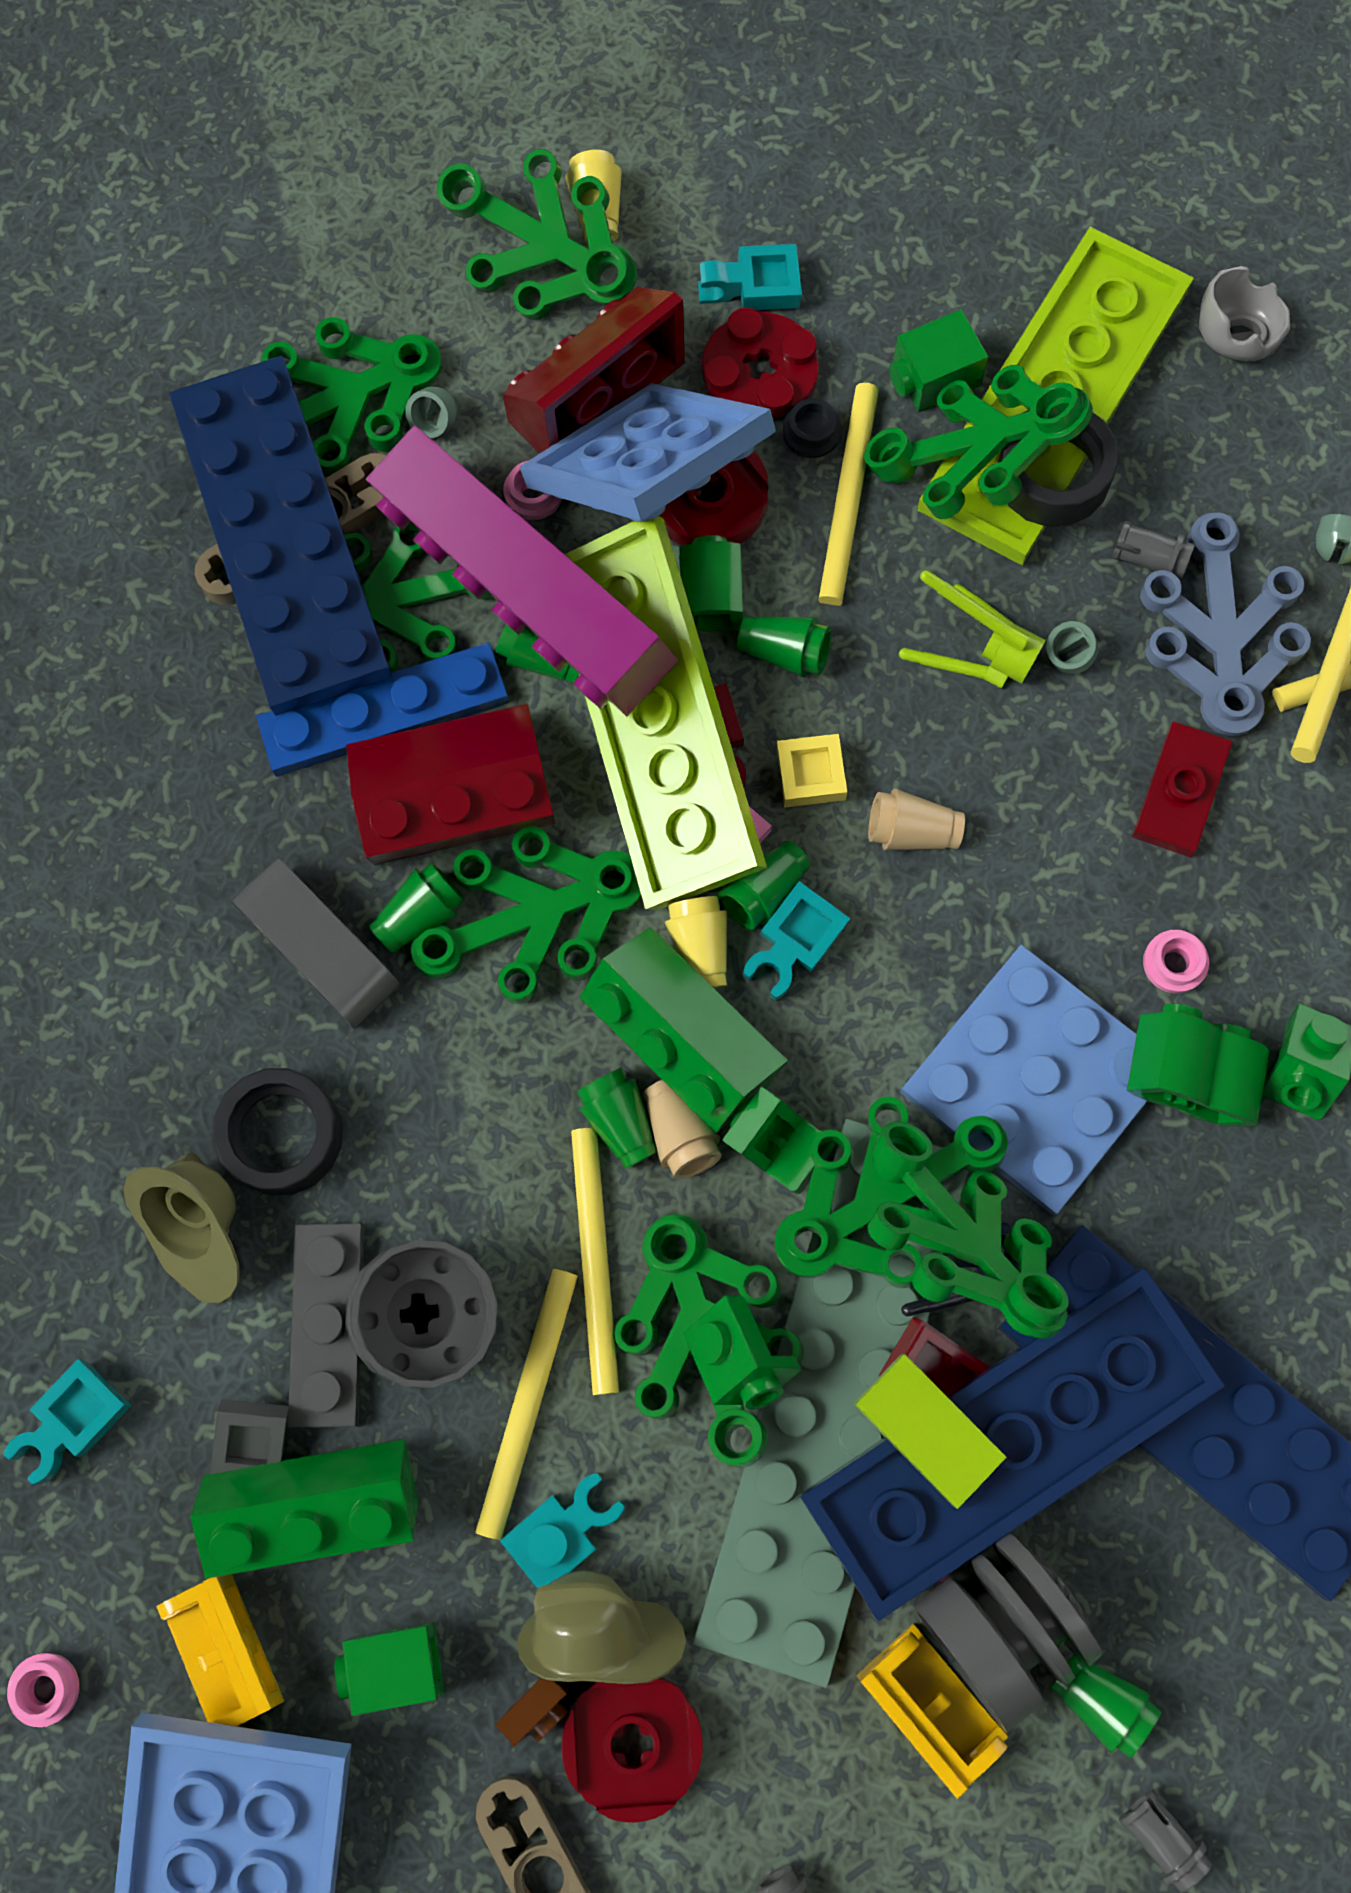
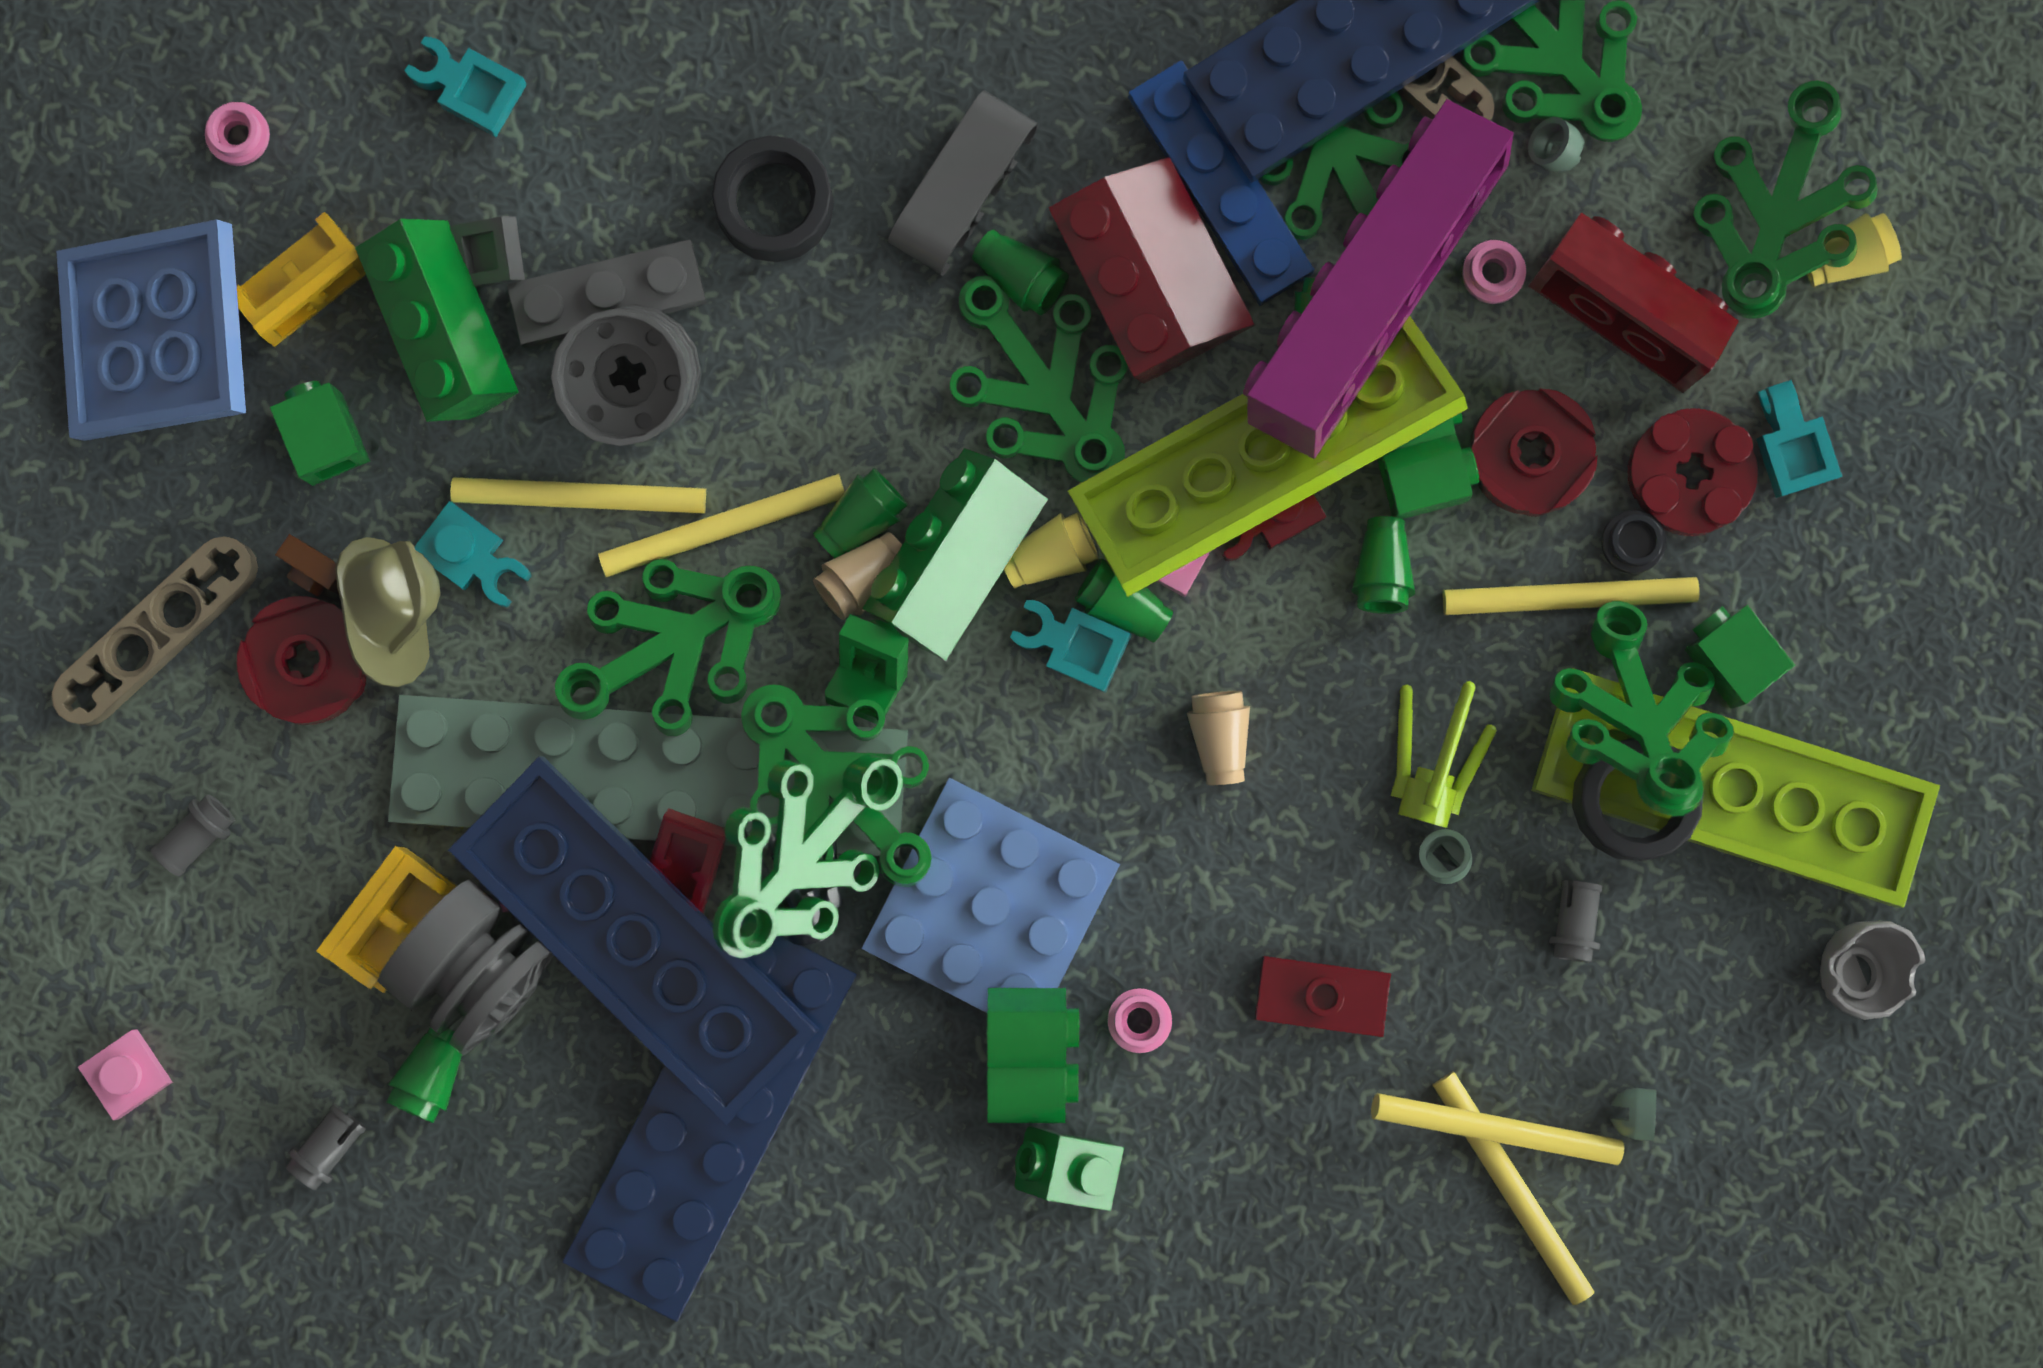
camera: 70 degrees right, 10 degrees up
(188, 1223) = (669, 141): olive piece -> none
(648, 451) = (1544, 375): medium blue plate -> none
(736, 1358) = (650, 669): green bracket -> none
(811, 770) = (1252, 621): light yellow plate -> none
(929, 1431) = (620, 858): lime tile -> none
(1222, 631) = (1502, 1011): sand blue plant -> none

